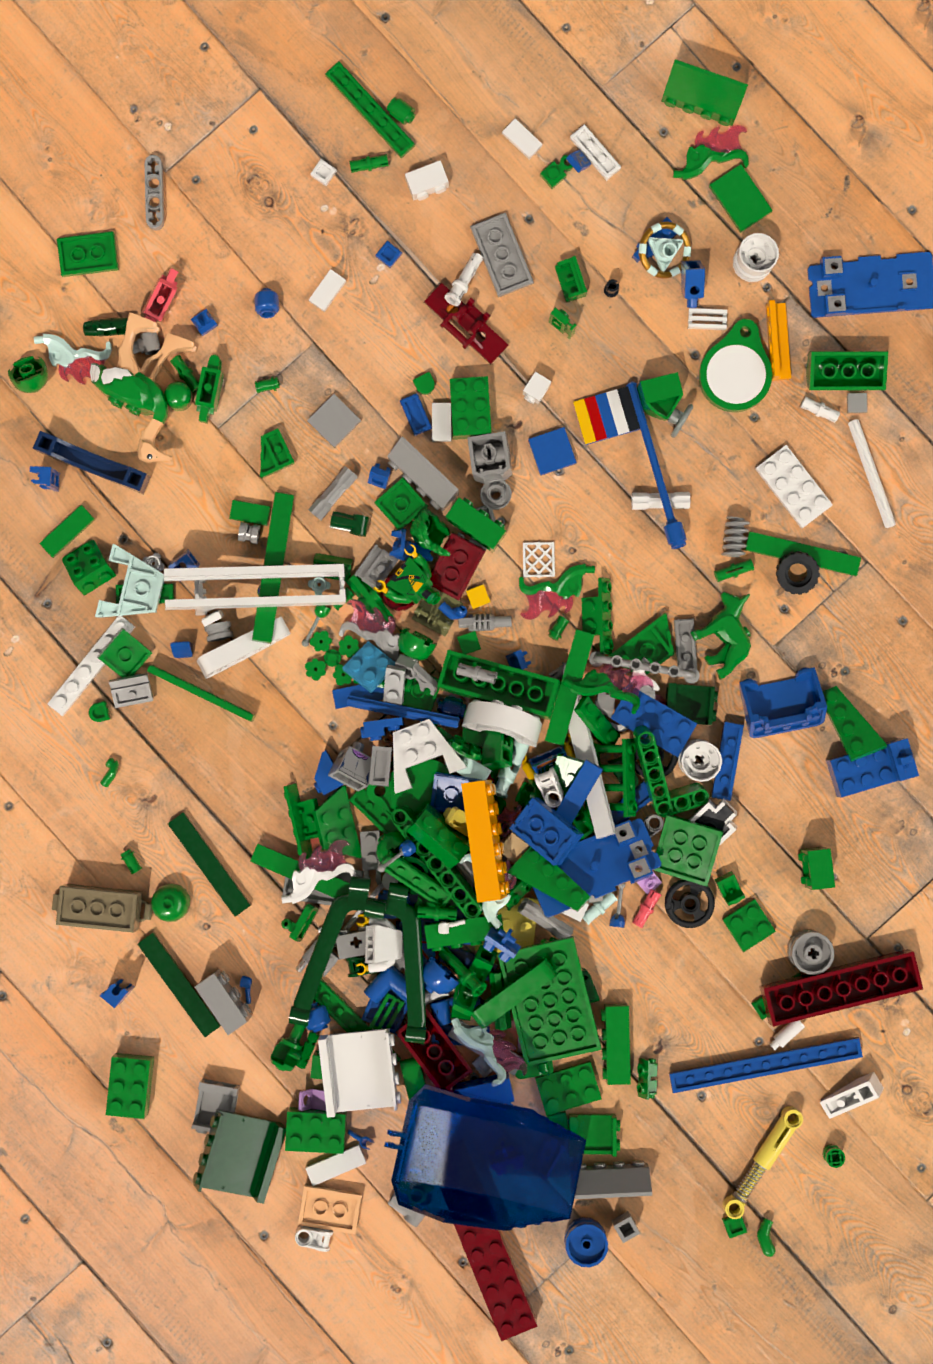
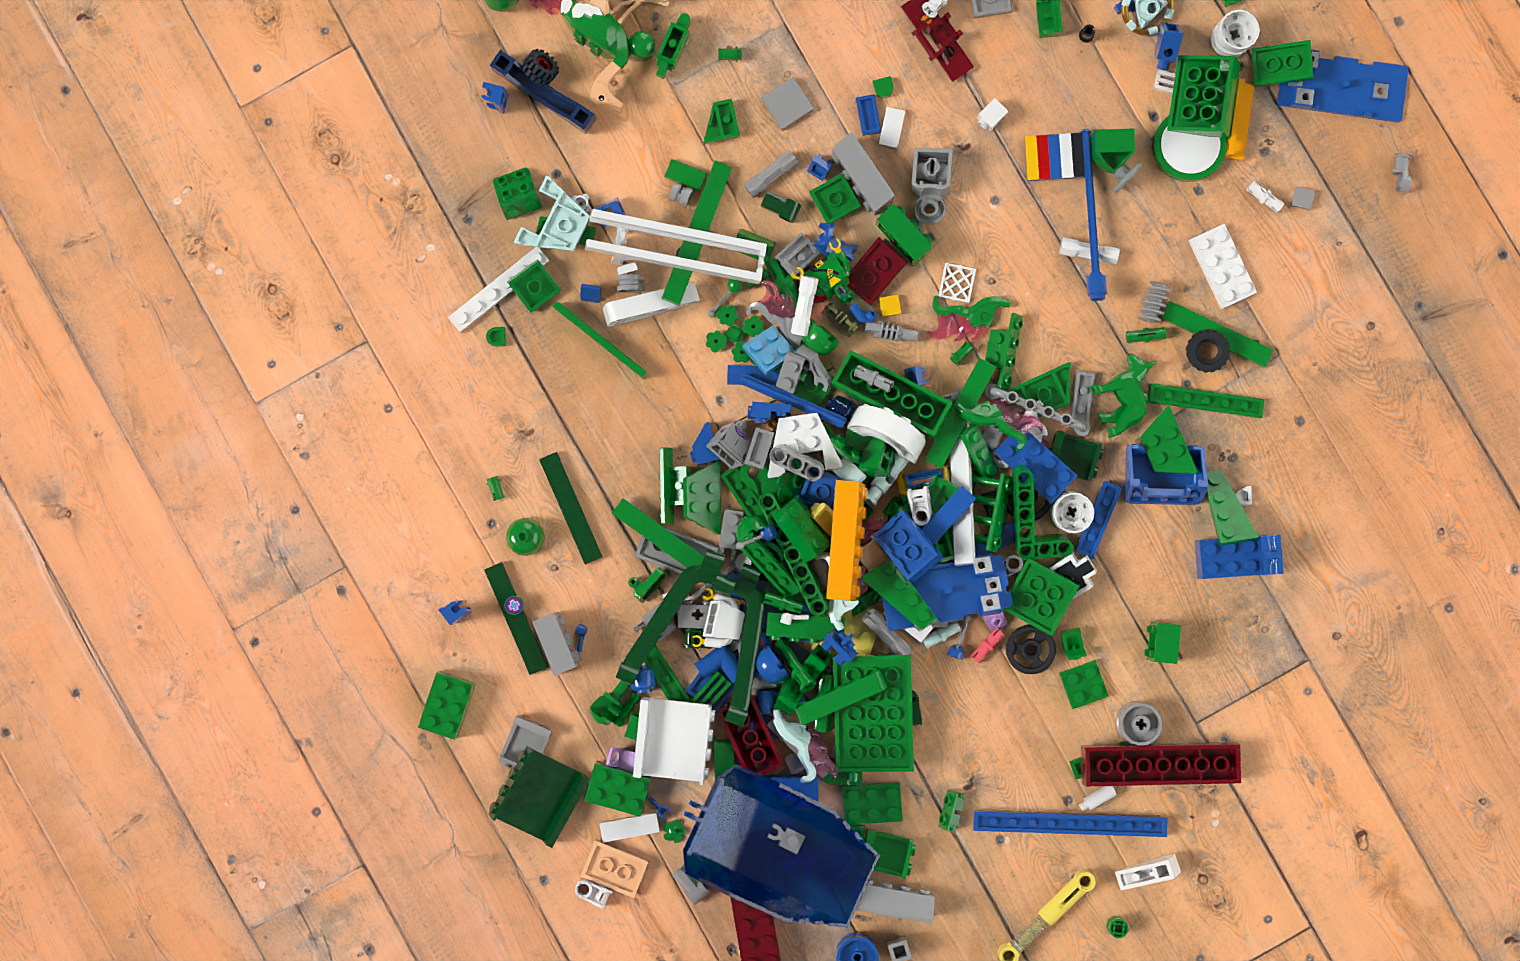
camera: 20 degrees right, 0 degrees up
(67, 531) = (504, 154): green tile -> none
(84, 438) = (540, 67): none -> black bush
(100, 908) = (456, 526): dark tan container -> none
(111, 773) = (495, 398): green arm -> none
(131, 690) = (532, 322): light grey plate -> none
(174, 972) = (514, 605): none -> tile
(185, 373) = (653, 25): green pin -> none
(318, 590) = (732, 258): light aqua plate -> none
(318, 867) = (676, 533): piece -> none
(379, 1158) = (674, 831): none -> green plant
(393, 602) = (807, 290): none -> white axle
(411, 776) = (807, 462): none -> light grey beam
(418, 796) = (790, 486): none -> green plate
(429, 532) = (857, 232): green hair -> none
(469, 643) = (871, 348): green tile -> none
(470, 407) = (923, 118): green brick -> none
(494, 1143) = (789, 839): none -> light grey plate
(552, 451) = (993, 180): blue tile -> none
(560, 321) = (1030, 54): green plate -> none
(616, 1044) = (929, 770): green brick -> none
(738, 324) = (1204, 95): none -> green slope
(778, 674) = (1167, 446): none -> green wing
(806, 621) = (1205, 400): none -> green tile
(808, 276) = (1282, 63): none -> green plate
(847, 370) = (1300, 164): green brick -> none
(864, 706) = (1244, 495): none -> white tile
(871, 473) = (1302, 270): white axle -> none

